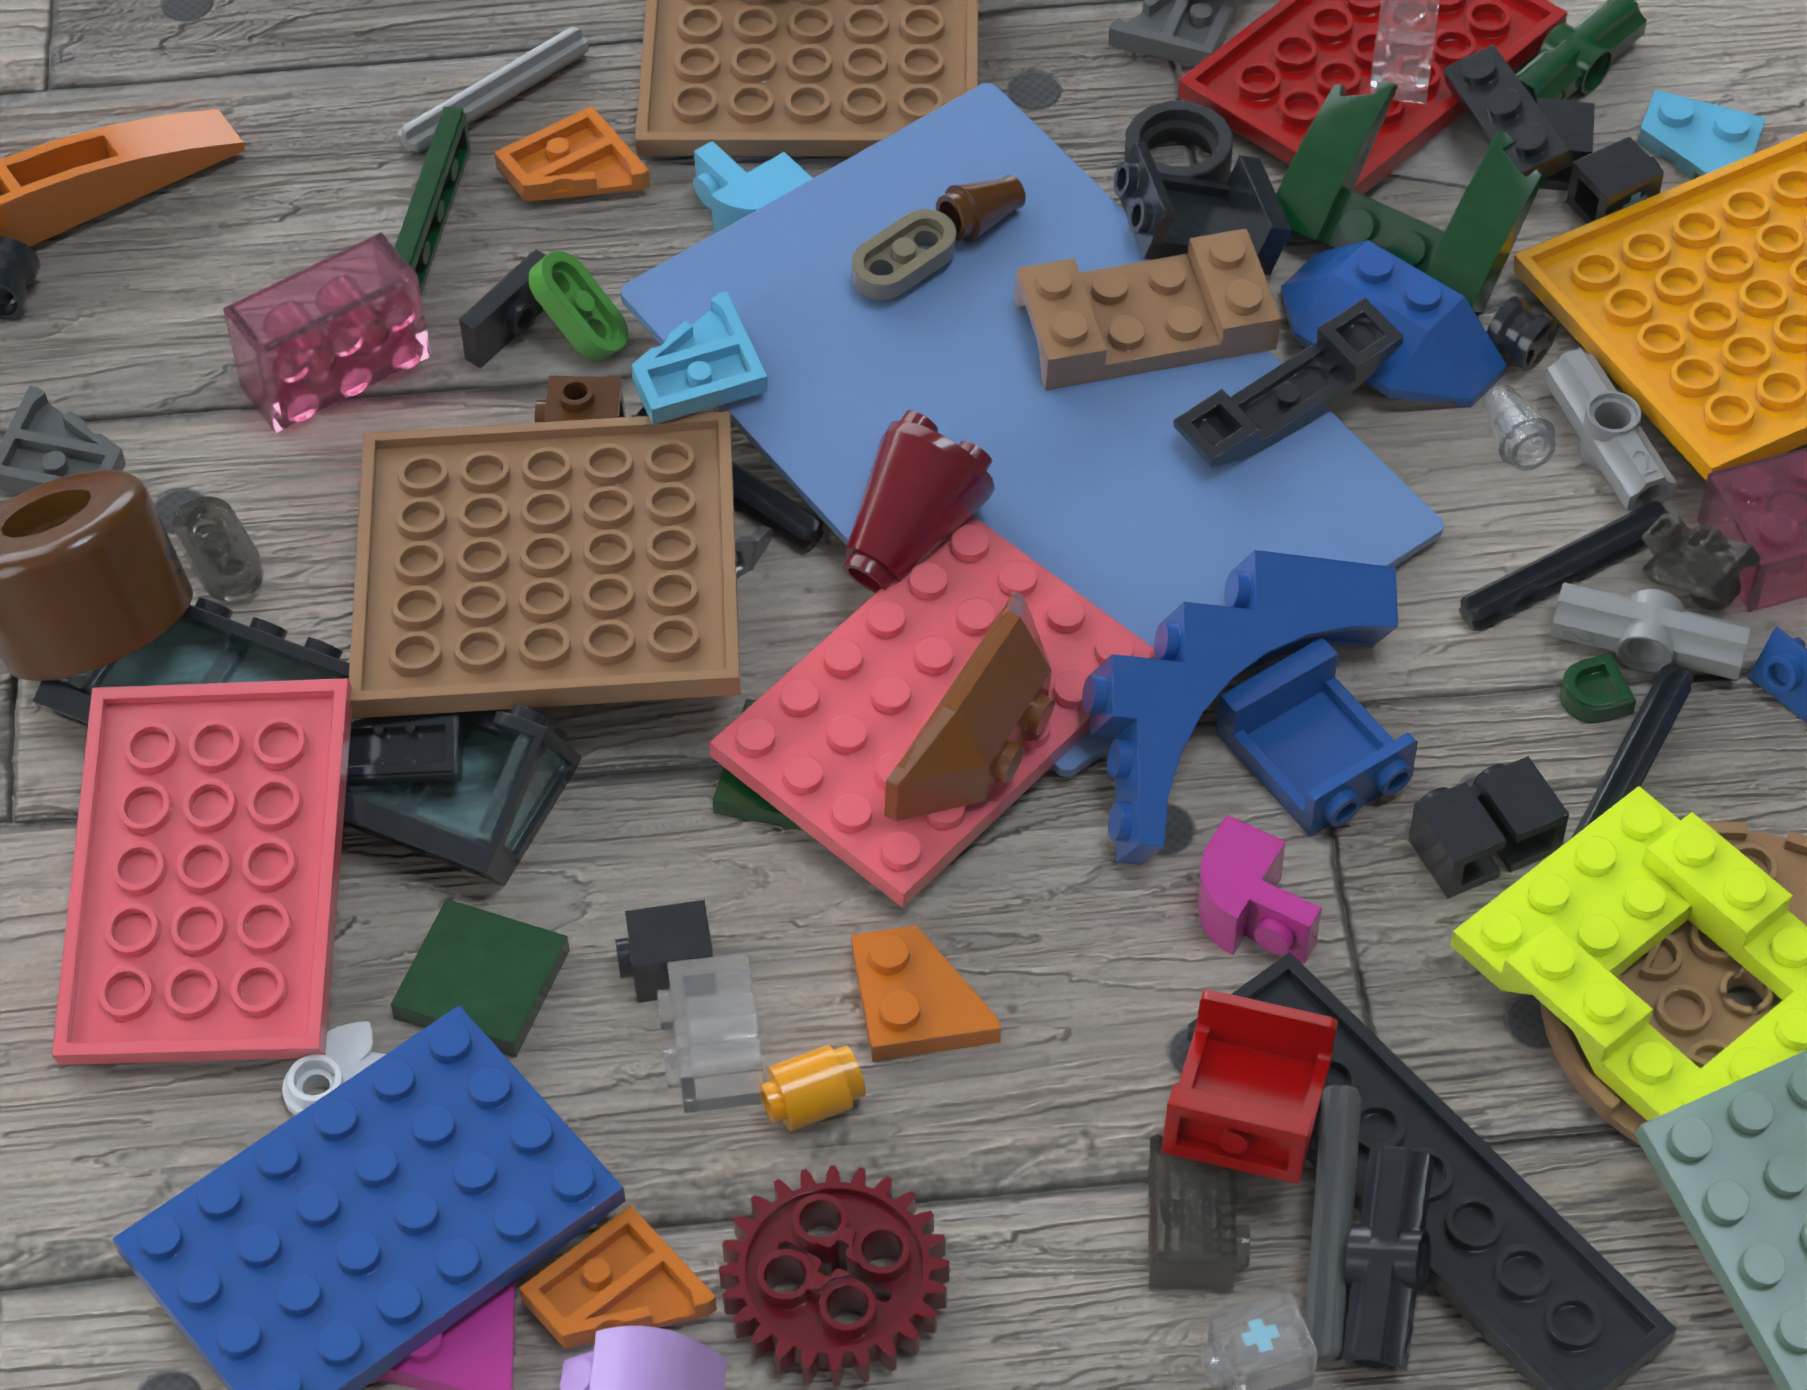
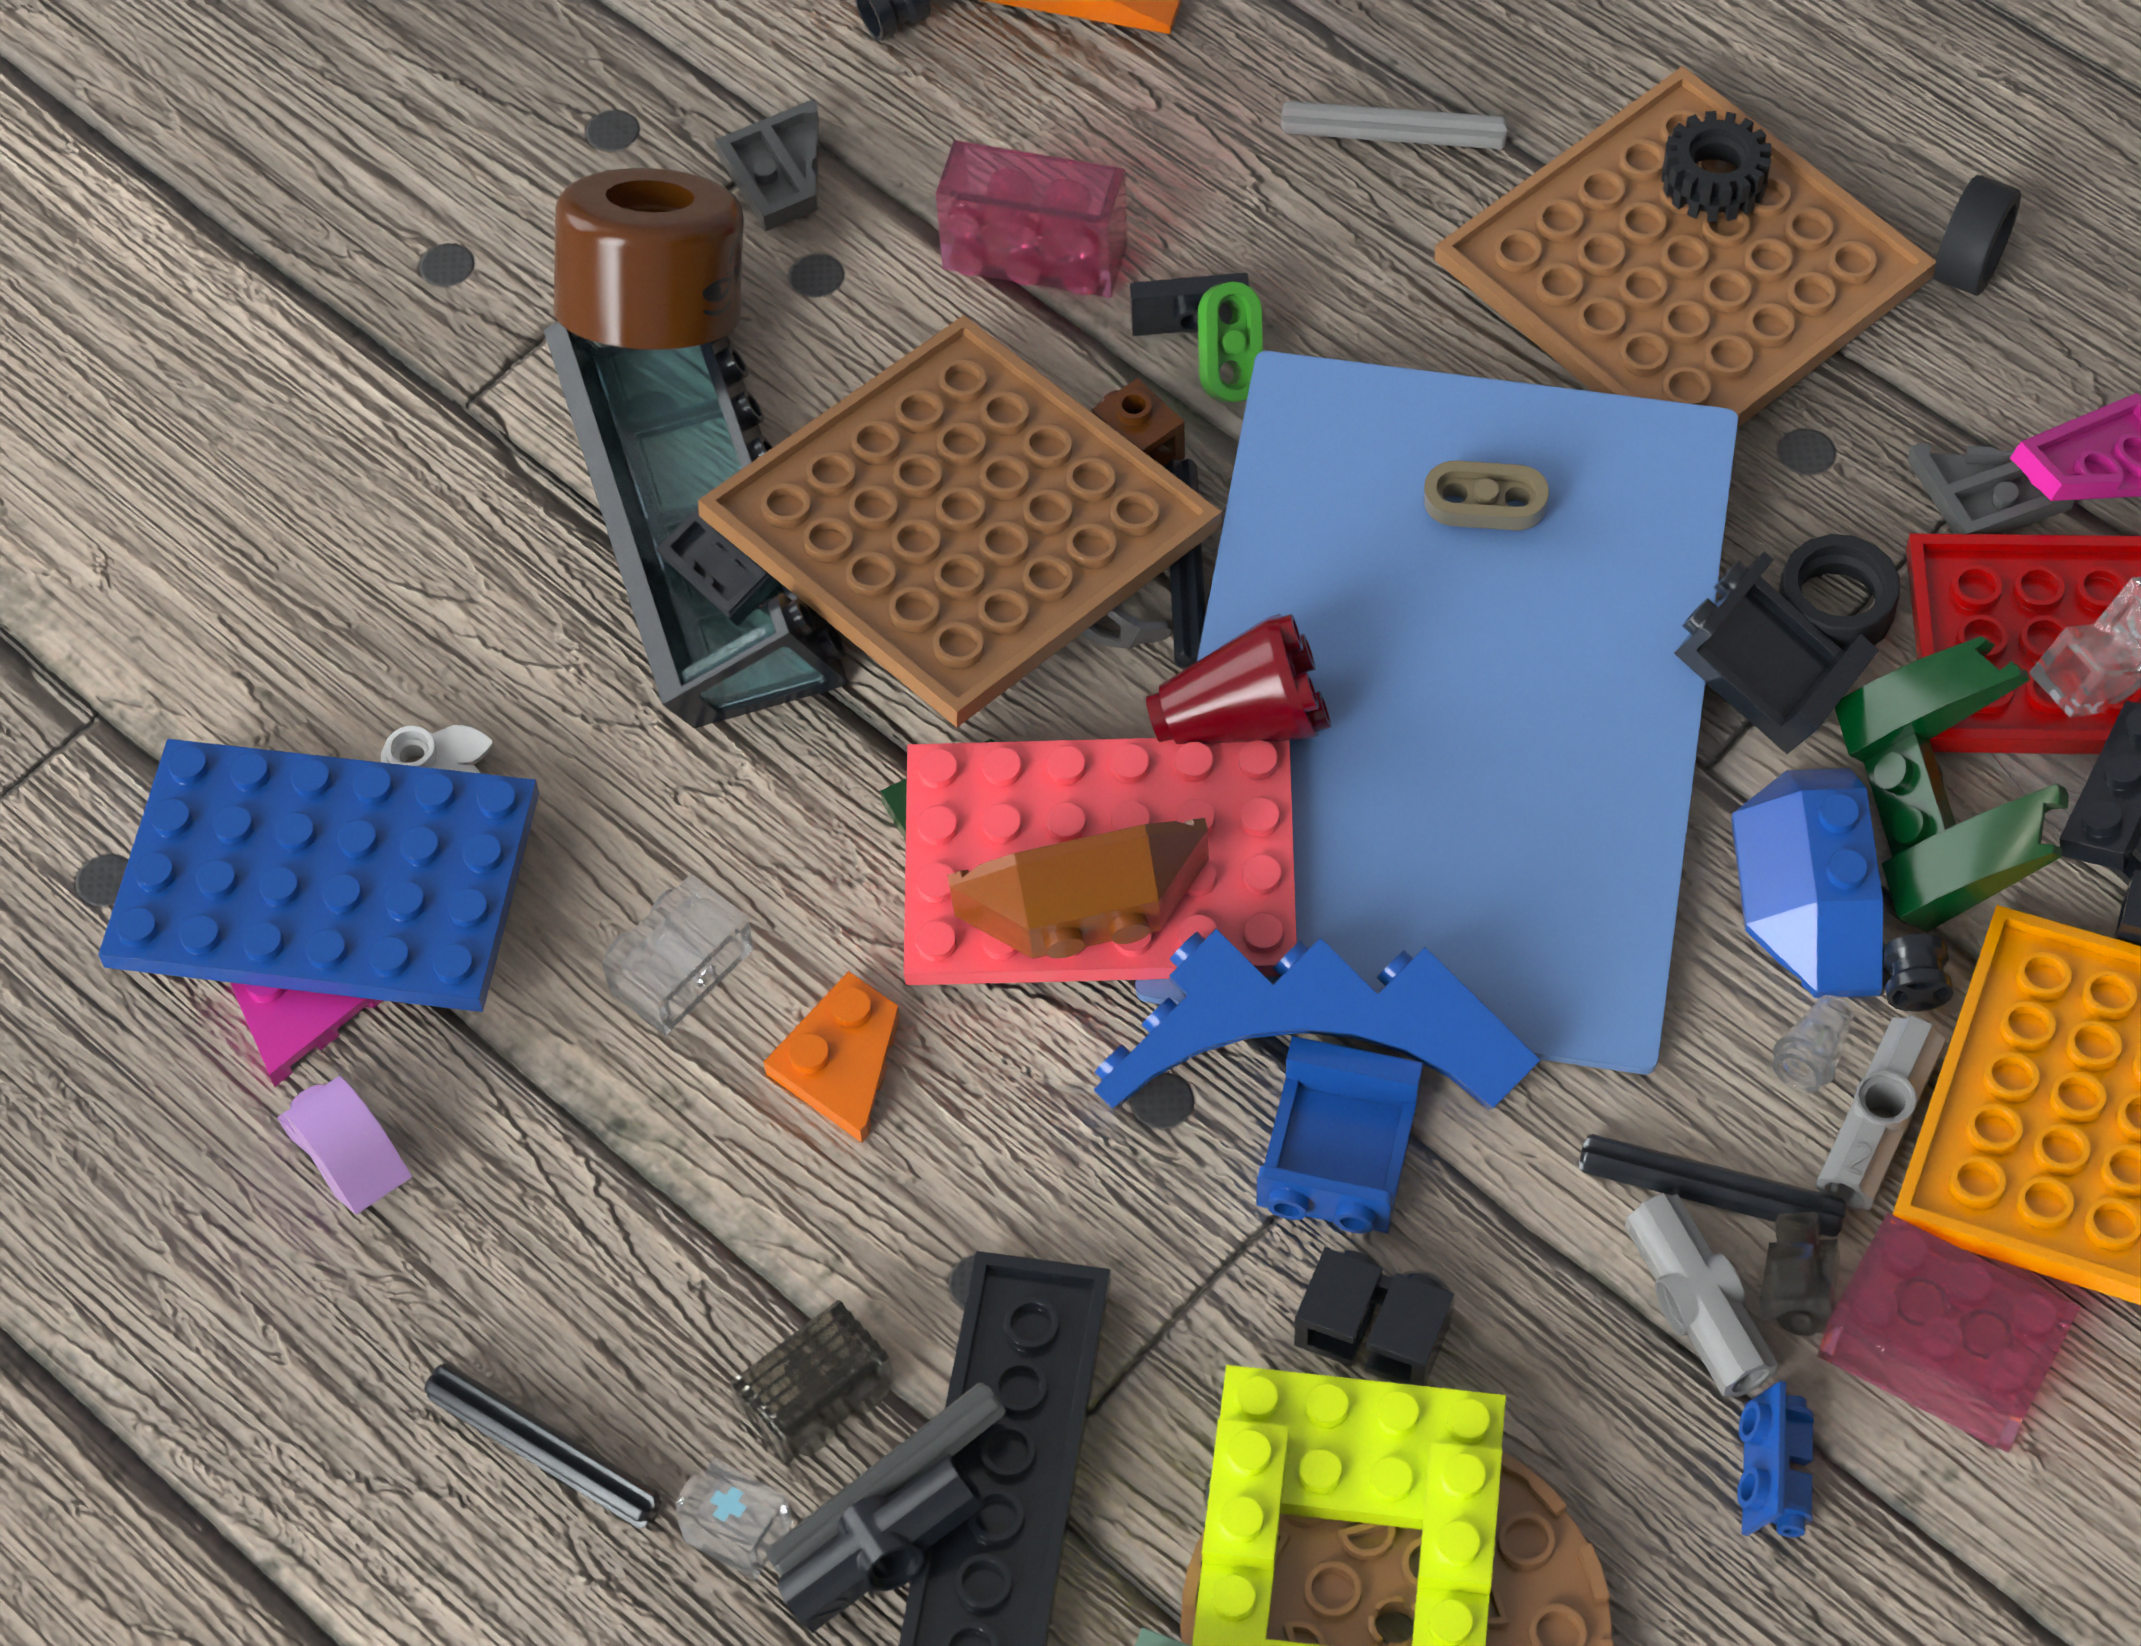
camera: 50 degrees right, 5 degrees up
(205, 873) = (501, 543): coral plate -> none
(225, 558) = (792, 327): clear smoke plate -> none
(434, 193) = (1228, 181): dark green tile -> none
(487, 967) = (597, 777): dark green tile -> none
(572, 160) = (1377, 225): orange wing -> none
(615, 1280) = (417, 1062): orange wing -> none
(661, 937) = (722, 862): black brick -> none
(700, 366) = (1233, 457): medium azure wing -> none
(733, 191) = (1457, 352): medium azure brick -> none
(812, 1086) = (690, 1050): light orange brick -> none
(834, 1275) = (484, 1203): dark red gear -> none
(980, 204) = (1590, 504): reddish brown cone -> none
(1149, 311) = (1617, 696): medium nougat piece -> none
(1242, 897) = (1139, 1186): dark pink brick -> none
(1250, 1086) = (932, 1332): red panel -> none
(1295, 392) = (1648, 858): black slope -> none
(1596, 690) = (1606, 1299): dark green tile -> none
(1641, 741) = (1582, 1371): black axle -> none

